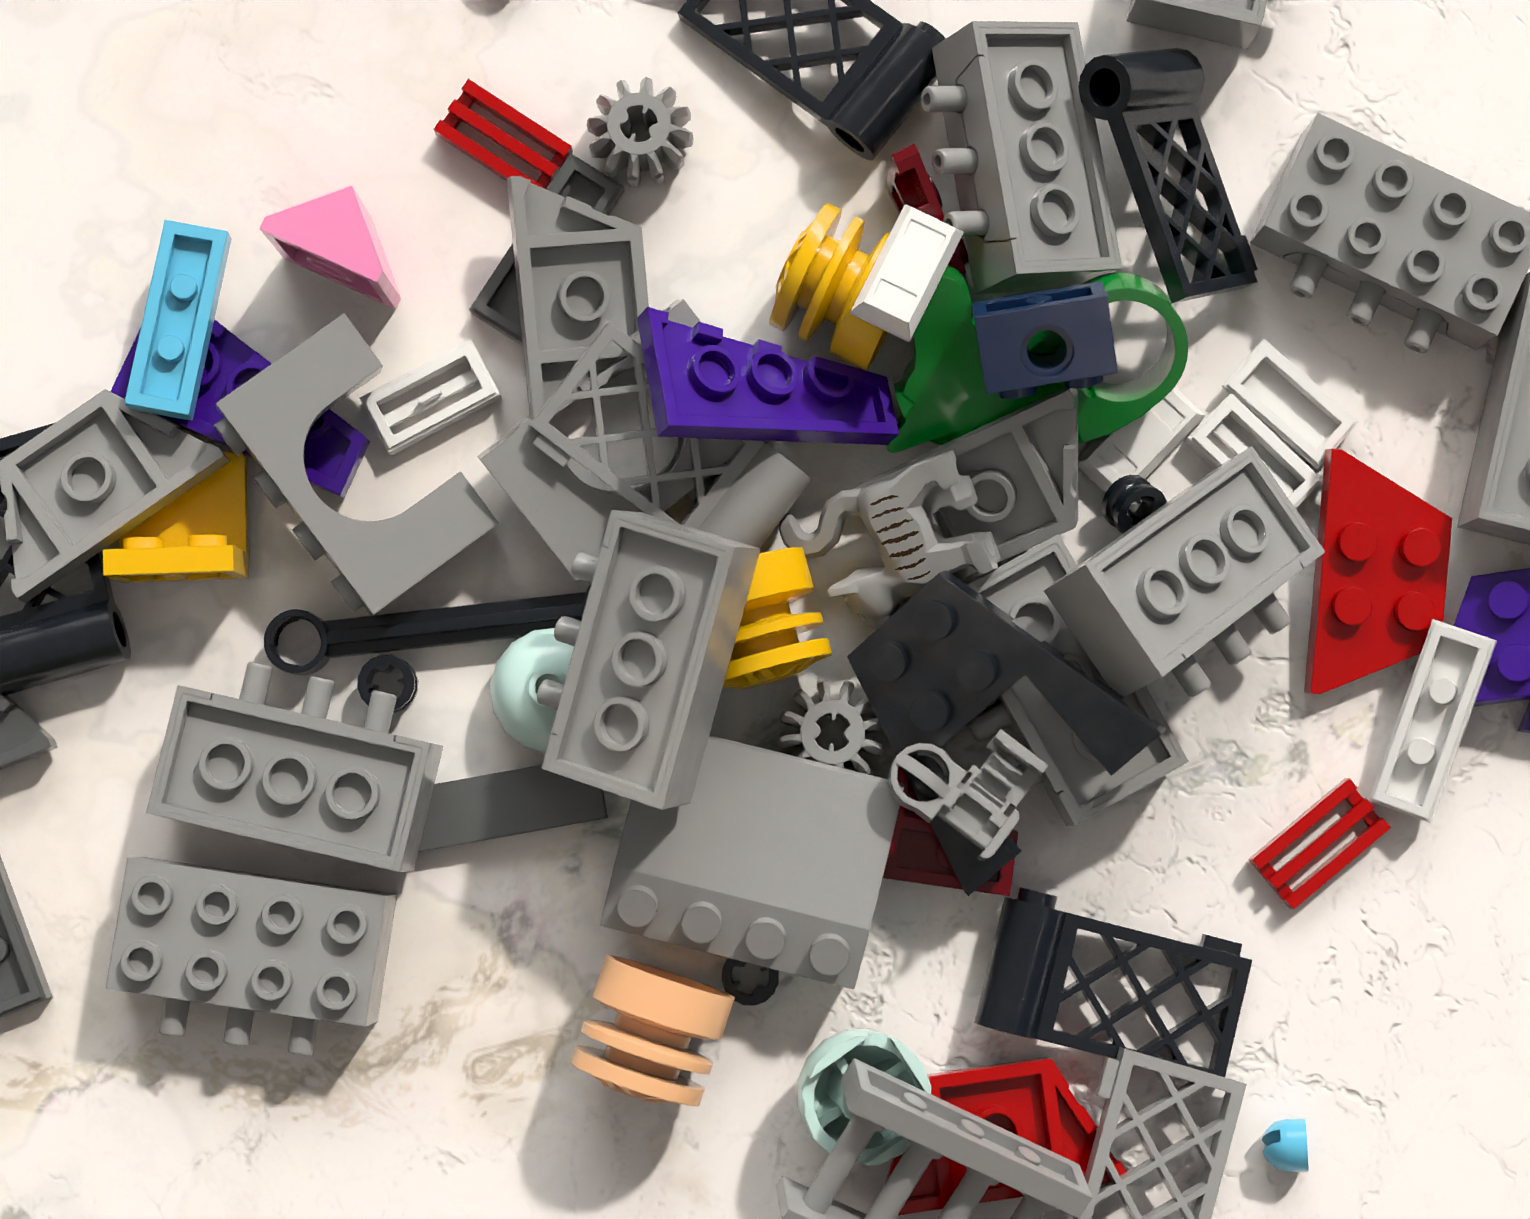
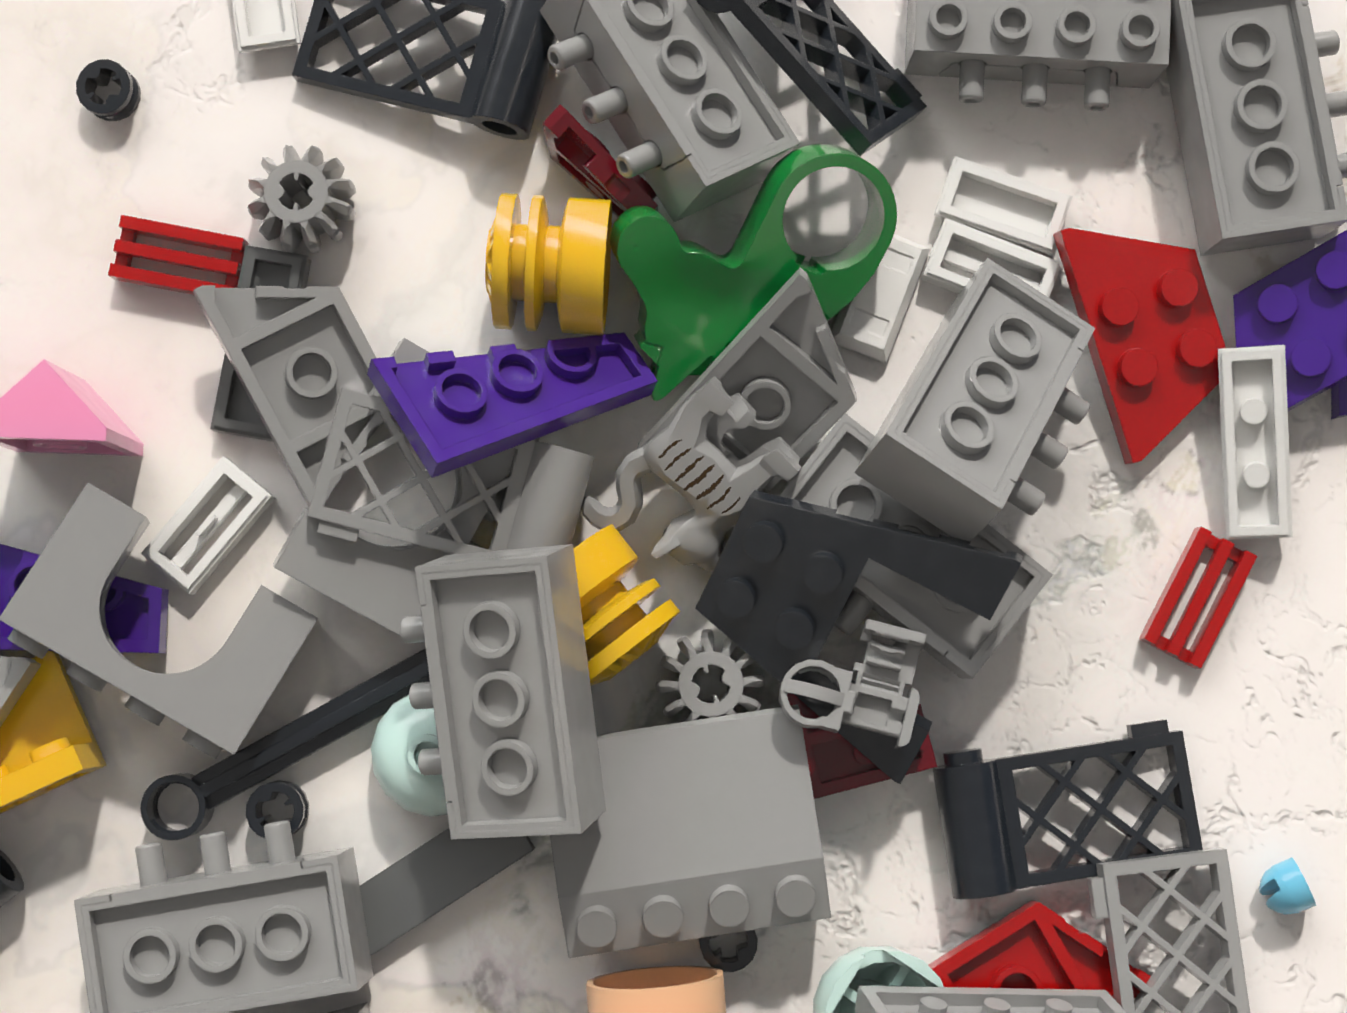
camera: 25 degrees left, 0 degrees up
(906, 273) = (603, 227): white tile -> none
(1010, 322) = (719, 235): dark blue brick -> none
(1121, 496) = (886, 352): black bush -> none

